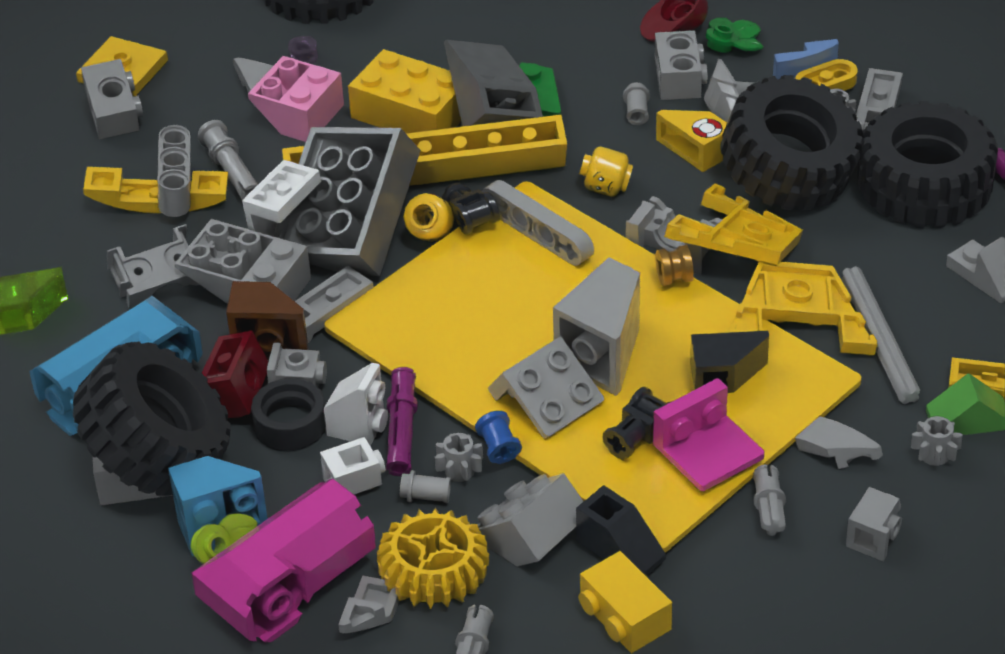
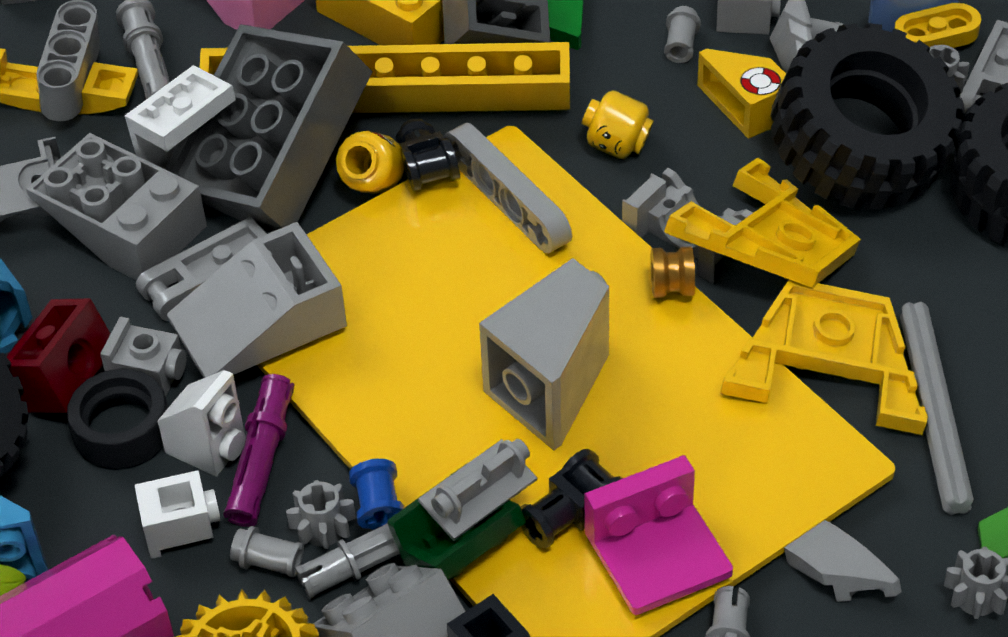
camera: 10 degrees right, 5 degrees up
(268, 314) = (114, 277): reddish brown slope -> none
(378, 320) = (260, 304): none -> light grey slope
(487, 484) = (347, 561): none -> light grey axle
(549, 387) = (457, 421): light grey bracket -> none
(560, 446) = (429, 546): none -> dark green bracket
(576, 418) = (479, 487): none -> light grey hinge
(728, 356) = (712, 420): black slope -> none

